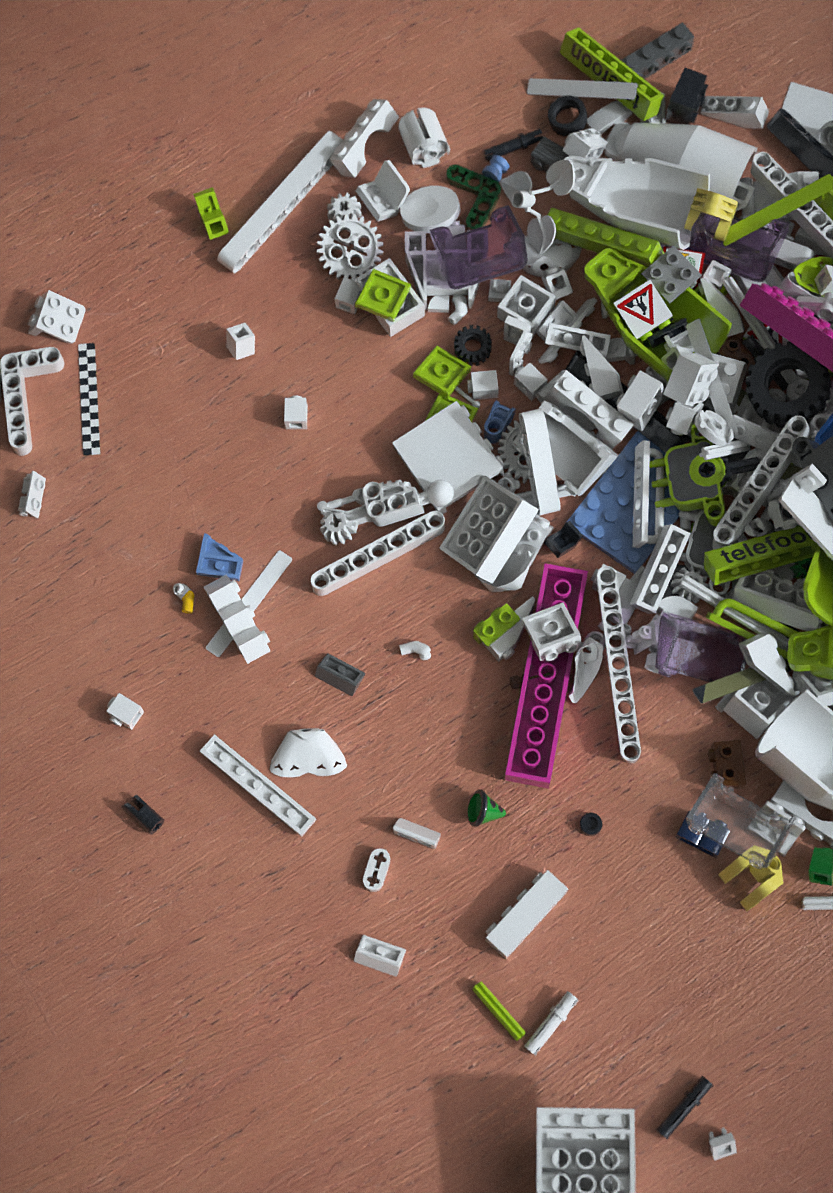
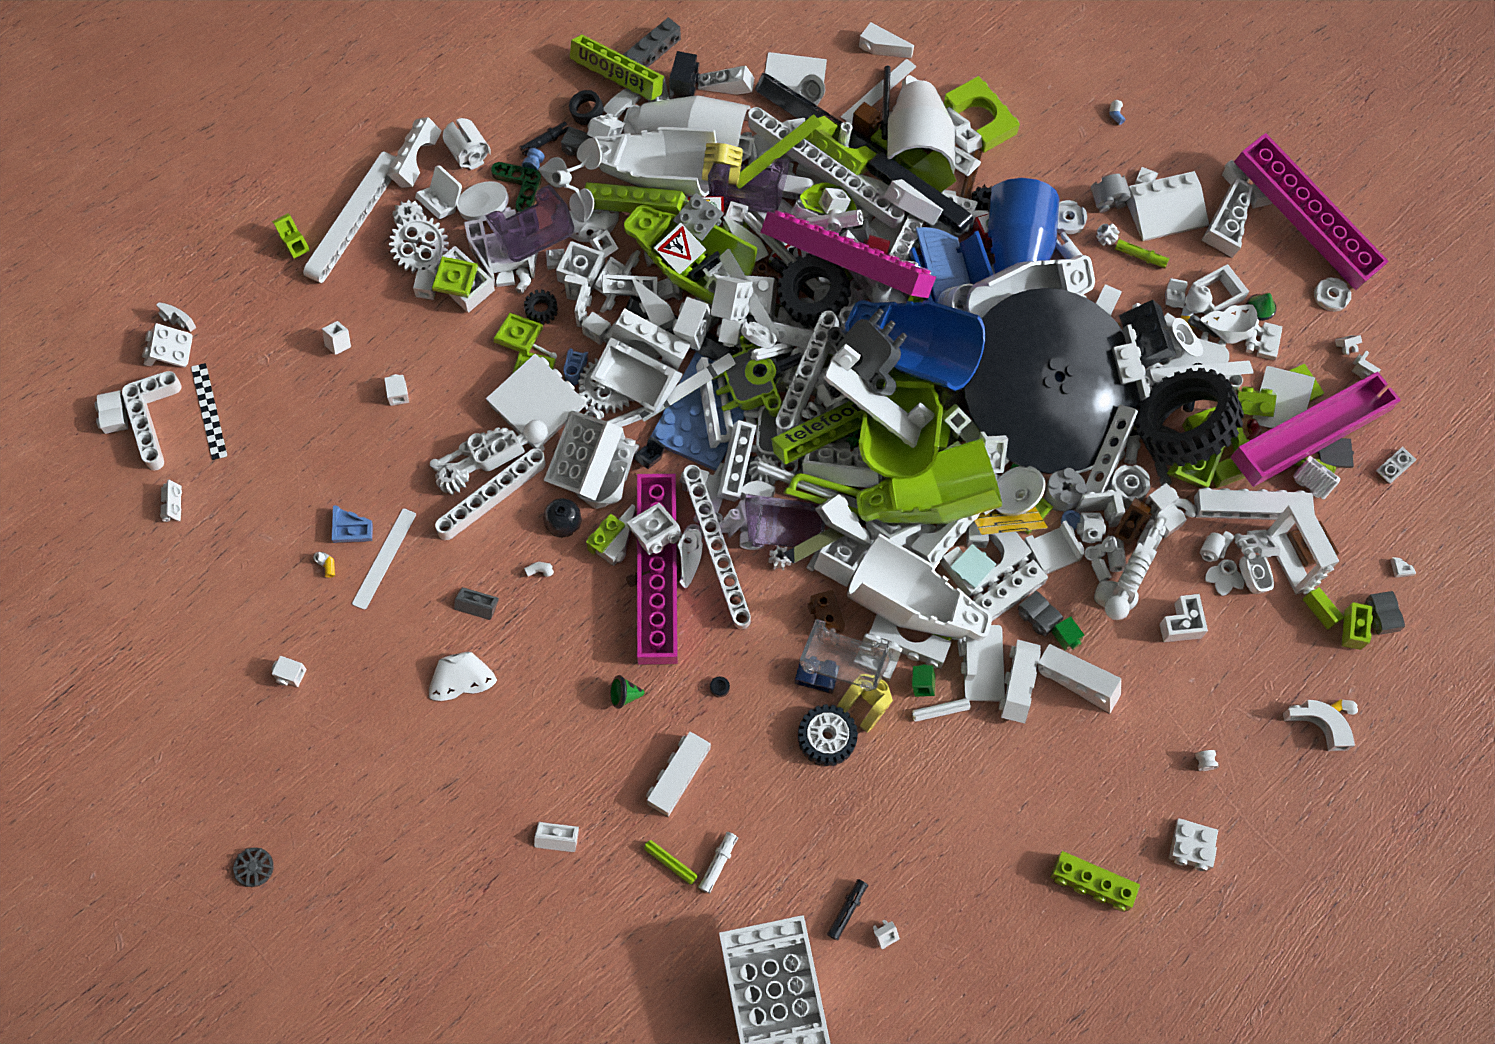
camera: 20 degrees left, 5 degrees down
(52, 919) = (253, 867): none -> dark grey wheel
(70, 283) = (175, 315): none -> white slope
(146, 816) = (323, 759): black hinge -> none
(237, 618) = (376, 572): white brick -> none
(258, 785) = (420, 712): white plate -> none
(371, 868) = (545, 764): white beam -> none
(416, 833) = (569, 725): white slope -> none
(452, 595) = (562, 517): none -> black cylinder
(483, 385) = (556, 337): white brick -> none
(539, 461) = (616, 389): white beam -> none
(579, 88) = (594, 82): white sticker -> none
(630, 468) = (693, 383): none -> white sticker
(683, 693) = (776, 560): none -> white gear
(697, 923) = (830, 720): none -> wheel

